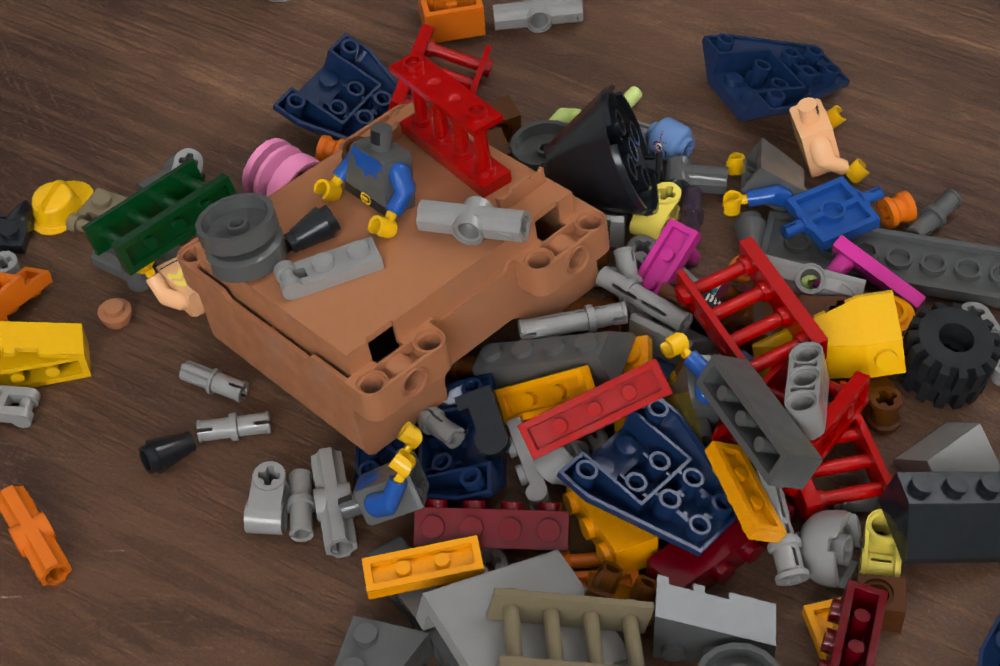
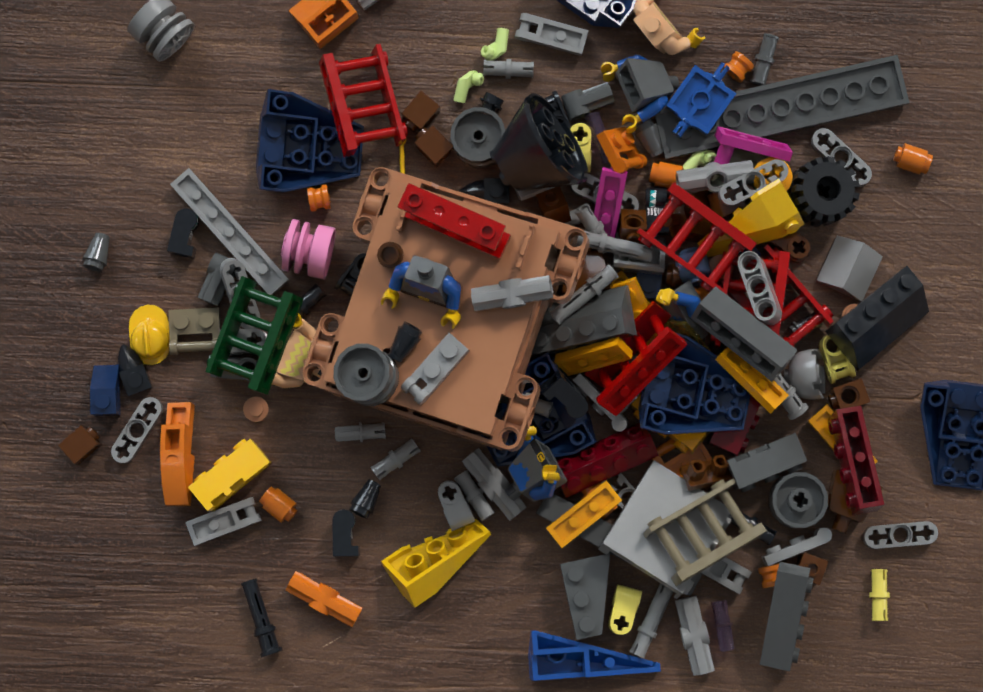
camera: 30 degrees left, 35 degrees up
(61, 411) = (278, 504): none -> orange brick
(67, 115) = (97, 253): none -> dark grey cone
(110, 476) = (342, 527): none -> black leg
(167, 131) = (182, 232): none -> black leg
(173, 558) = (426, 567): none -> yellow wedge
(213, 132) = (229, 232): none -> light grey plate
(670, 138) = (553, 71): medium blue head -> none
(693, 112) = (552, 34): none -> light grey plate
(711, 223) = (617, 143): none -> orange plate
(866, 281) = (733, 184): none -> light grey beam

